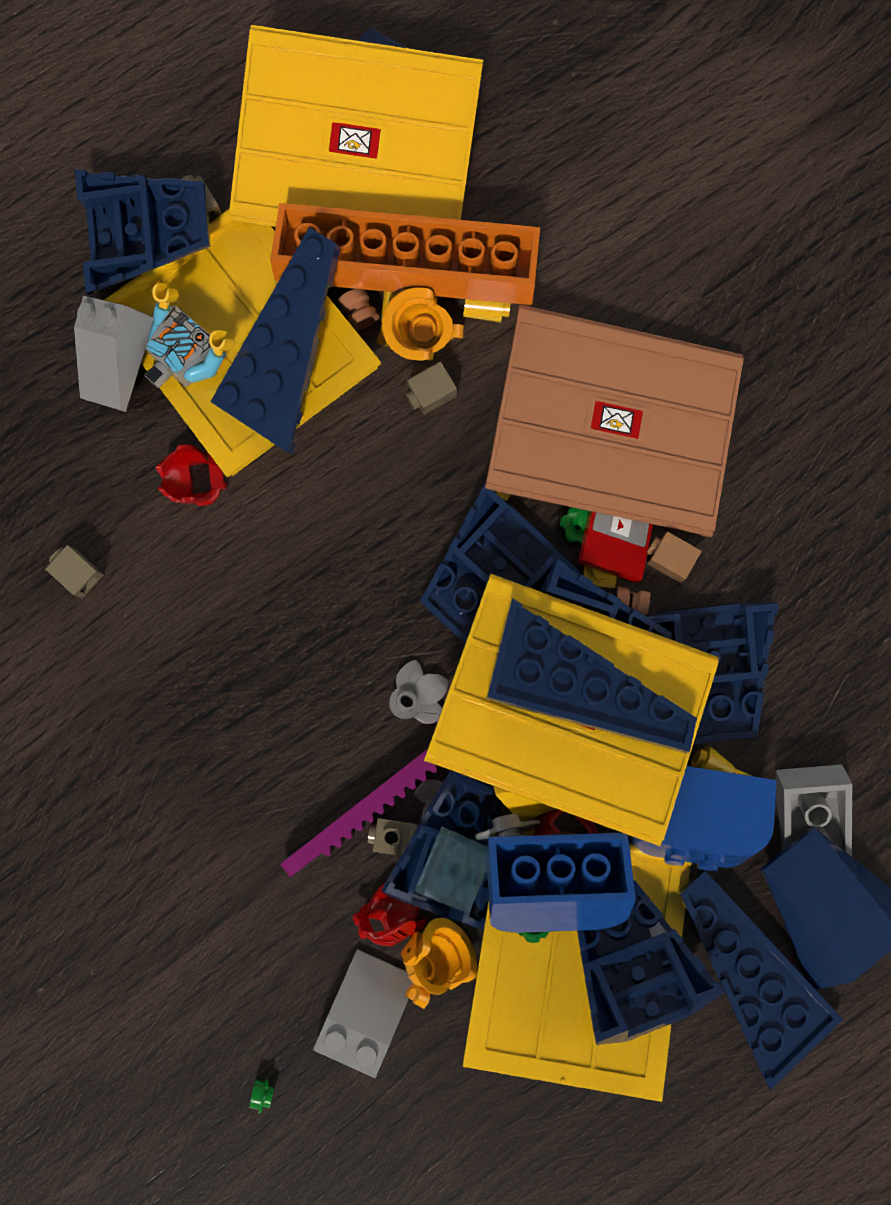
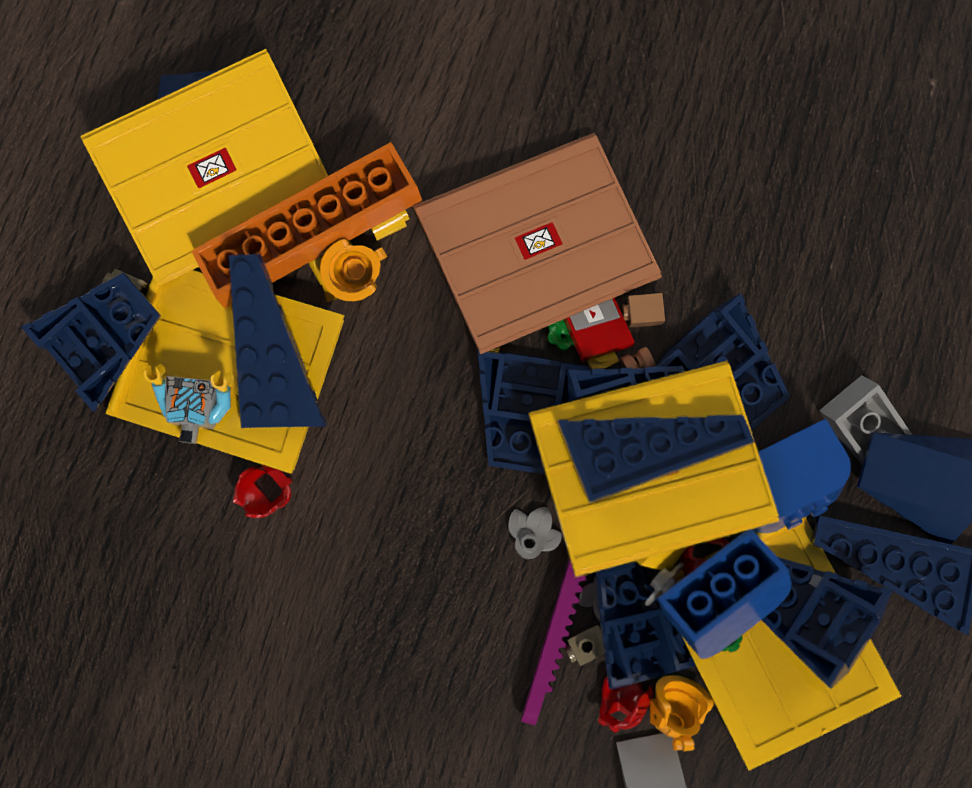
camera: 40 degrees left, 0 degrees up
(73, 571) = (225, 617): dark tan brick -> none
(109, 350) = (140, 442): light grey slope -> none
(358, 309) = (297, 287): nougat wheel -> none
(430, 389) = (390, 309): dark tan brick -> none
(453, 870) = (647, 638): clear light blue plate -> none
(710, 759) = (769, 435): yellow cone -> none

